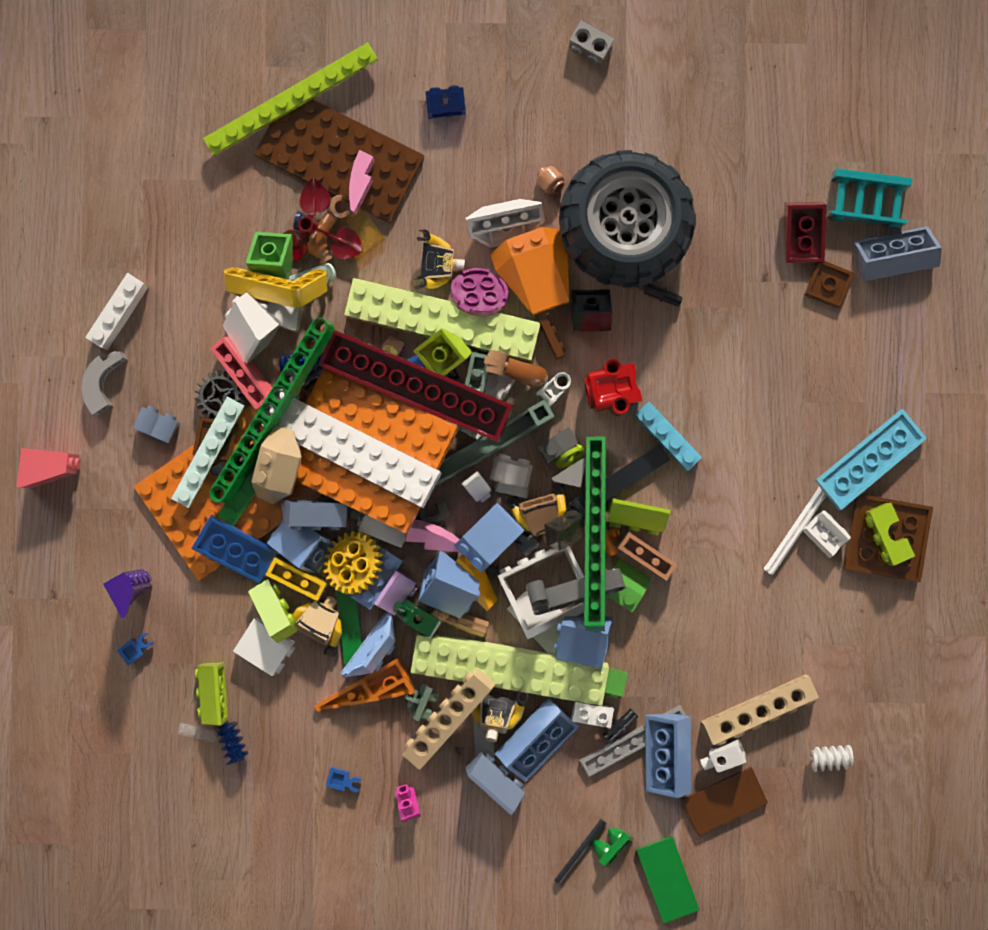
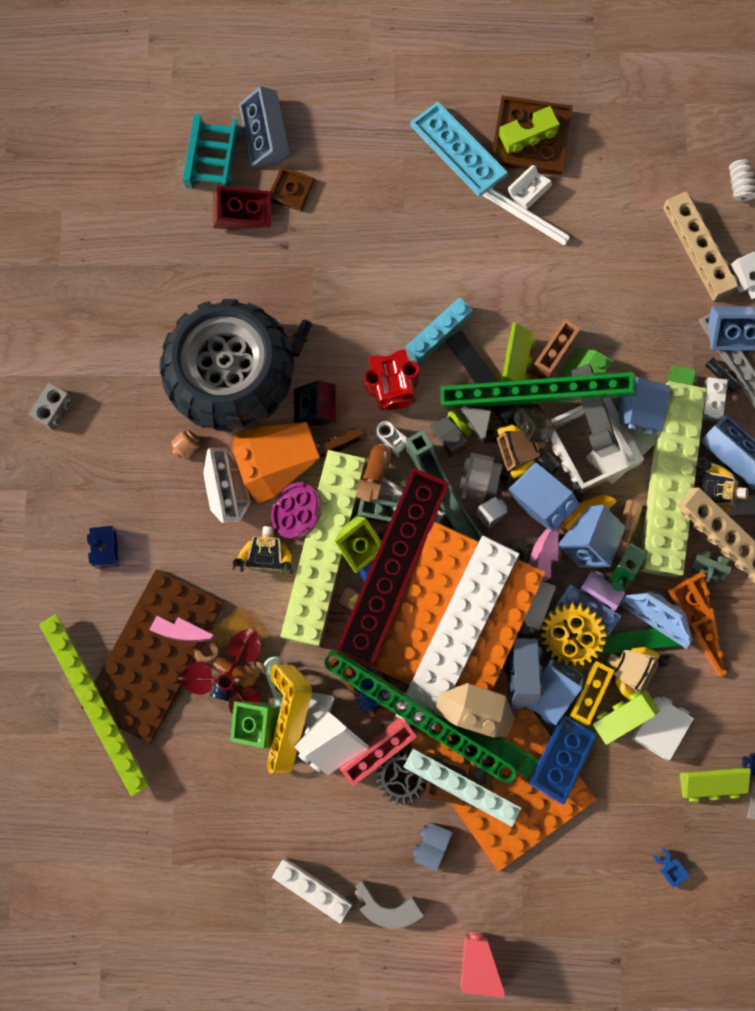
camera: 80 degrees left, 10 degrees down
(126, 587) = (612, 871): dark purple wedge -> none

